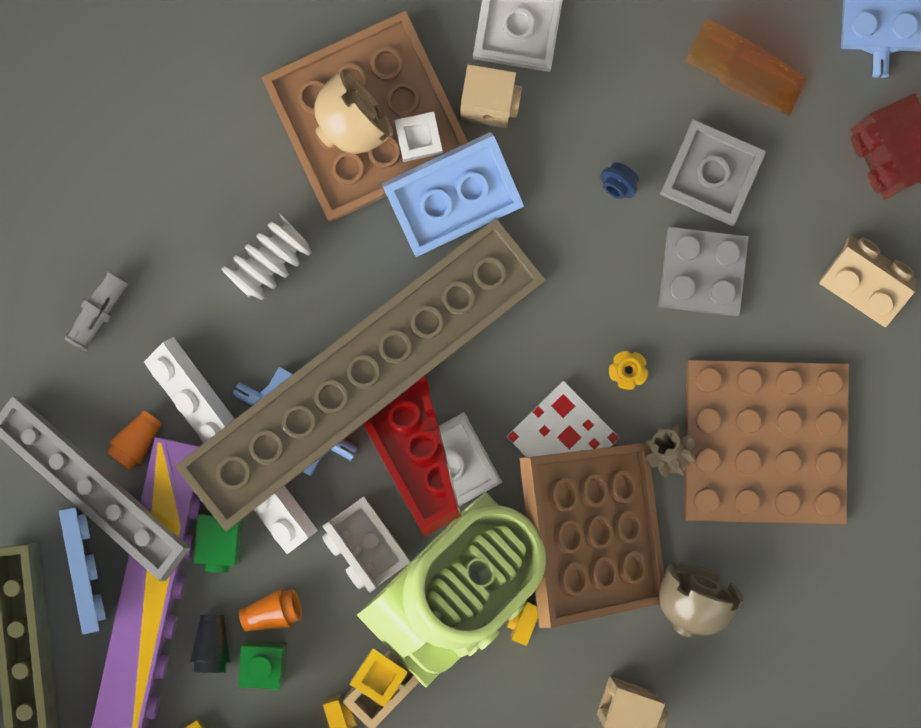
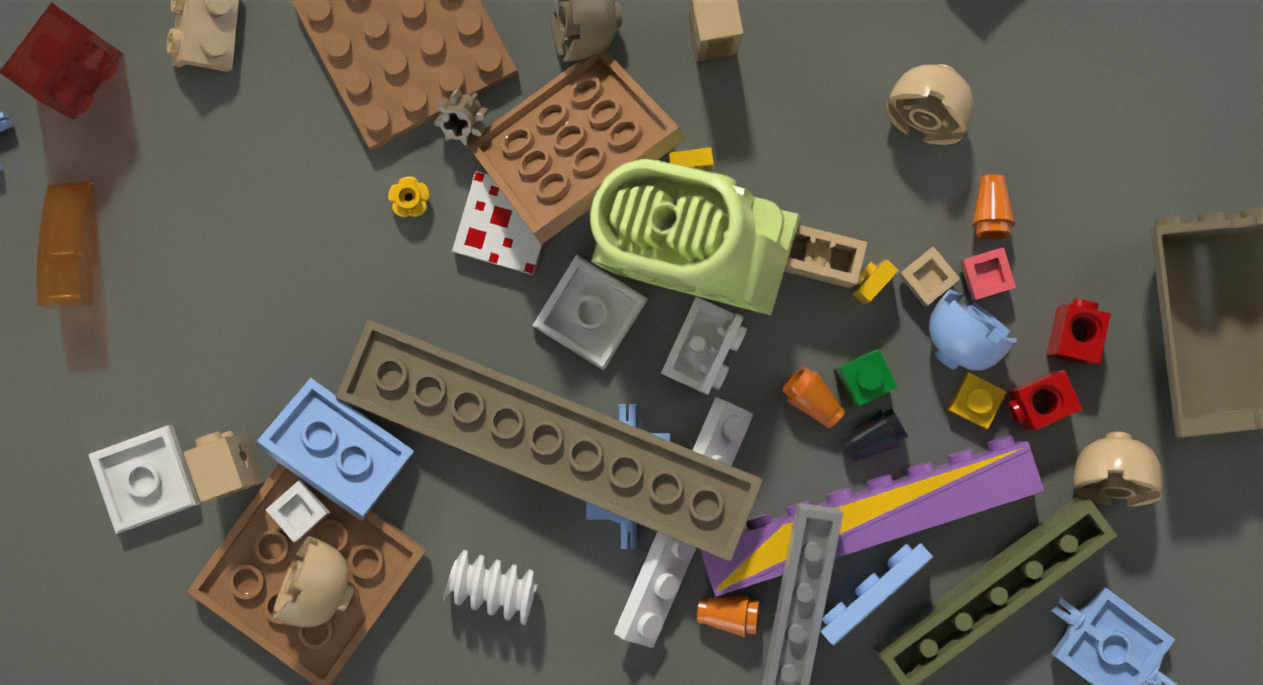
camera: 115 degrees left, 0 degrees up
(216, 546) = (782, 482): green brick -> none
(378, 677) = (815, 262): yellow plate -> none
(415, 456) = (596, 344): red wing -> none
(619, 181) = (237, 302): dark blue plate -> none
(703, 271) = (280, 180): light grey plate -> none
(712, 172) = (182, 221): light grey plate -> none

